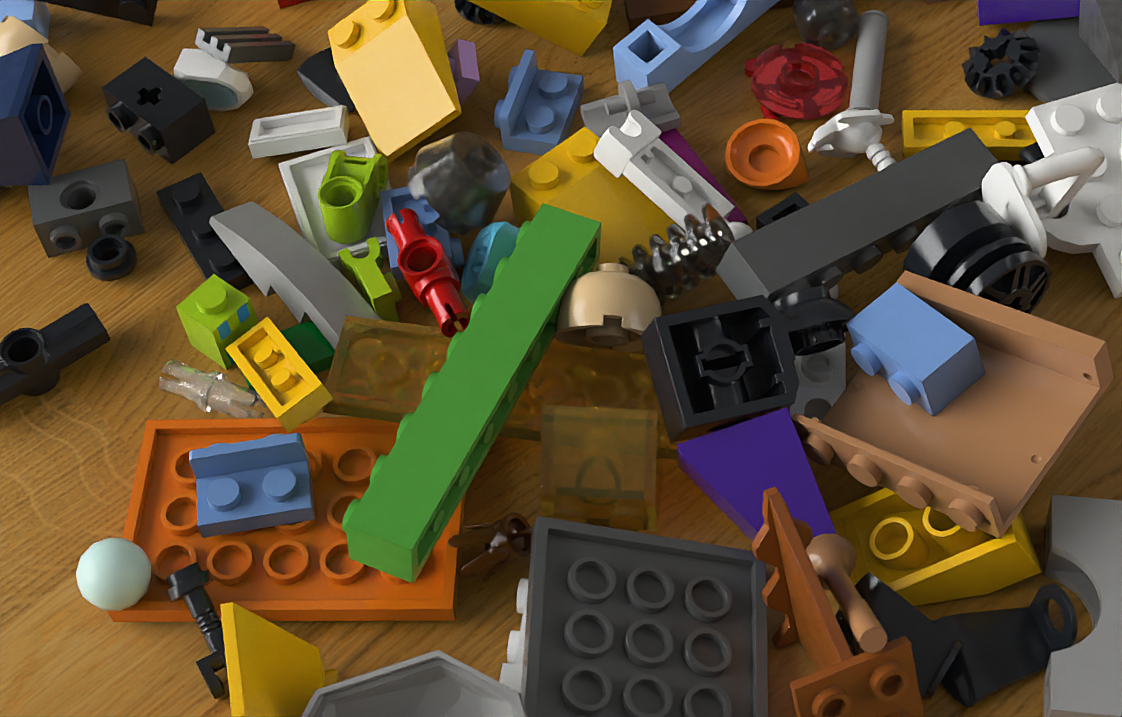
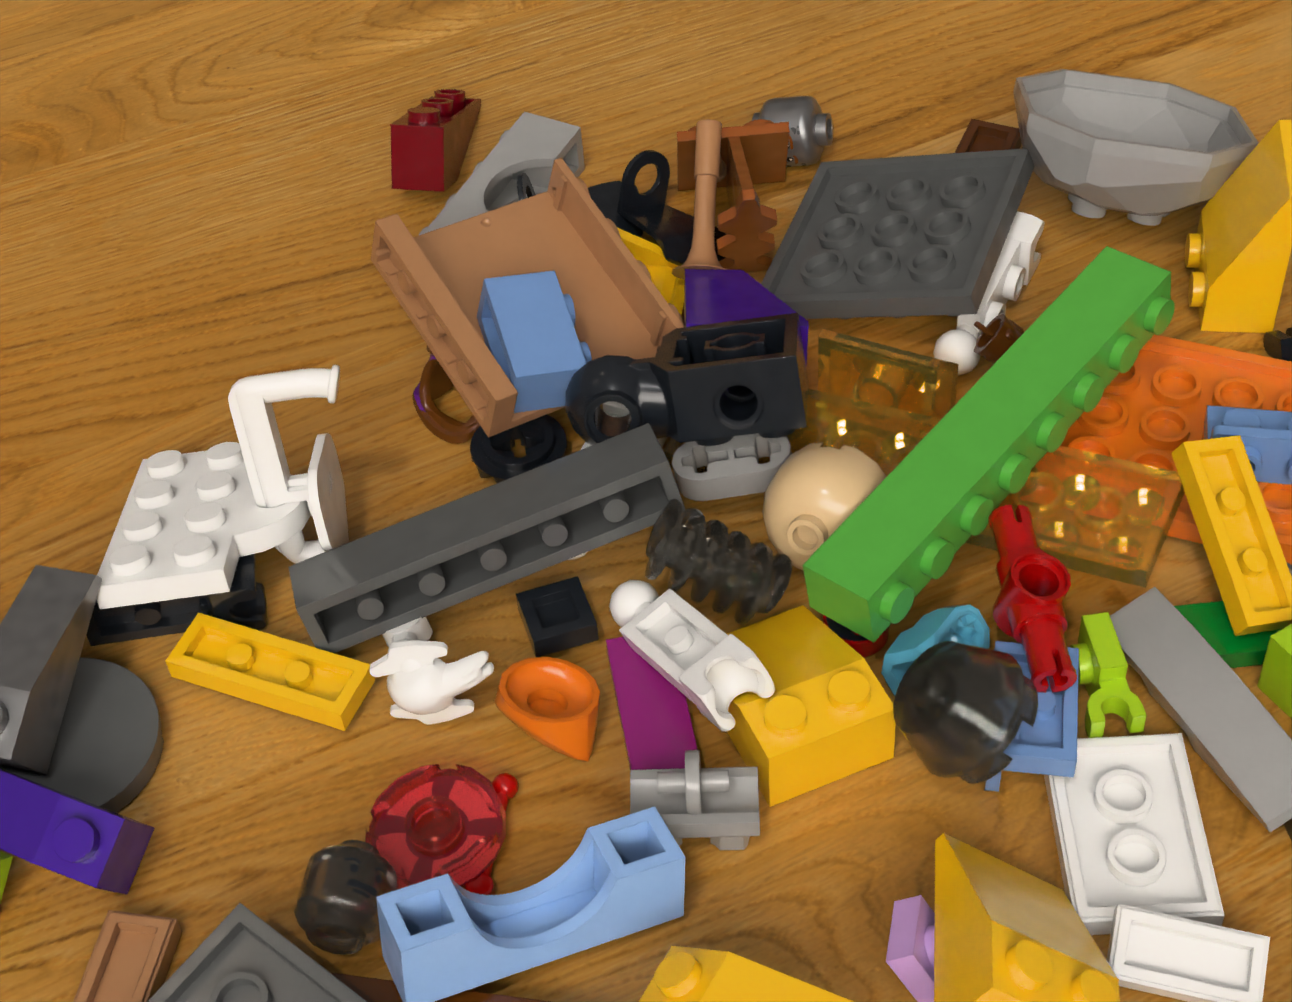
camera: 165 degrees left, 5 degrees down
(351, 195) = (1115, 789): lime piece -> none
(537, 107) = (809, 897): medium blue bracket -> none
(869, 61) = (341, 804): light grey pin -> none
(980, 255) = (400, 452): black wheel -> none
(1003, 77) = (158, 779): black gear -> none

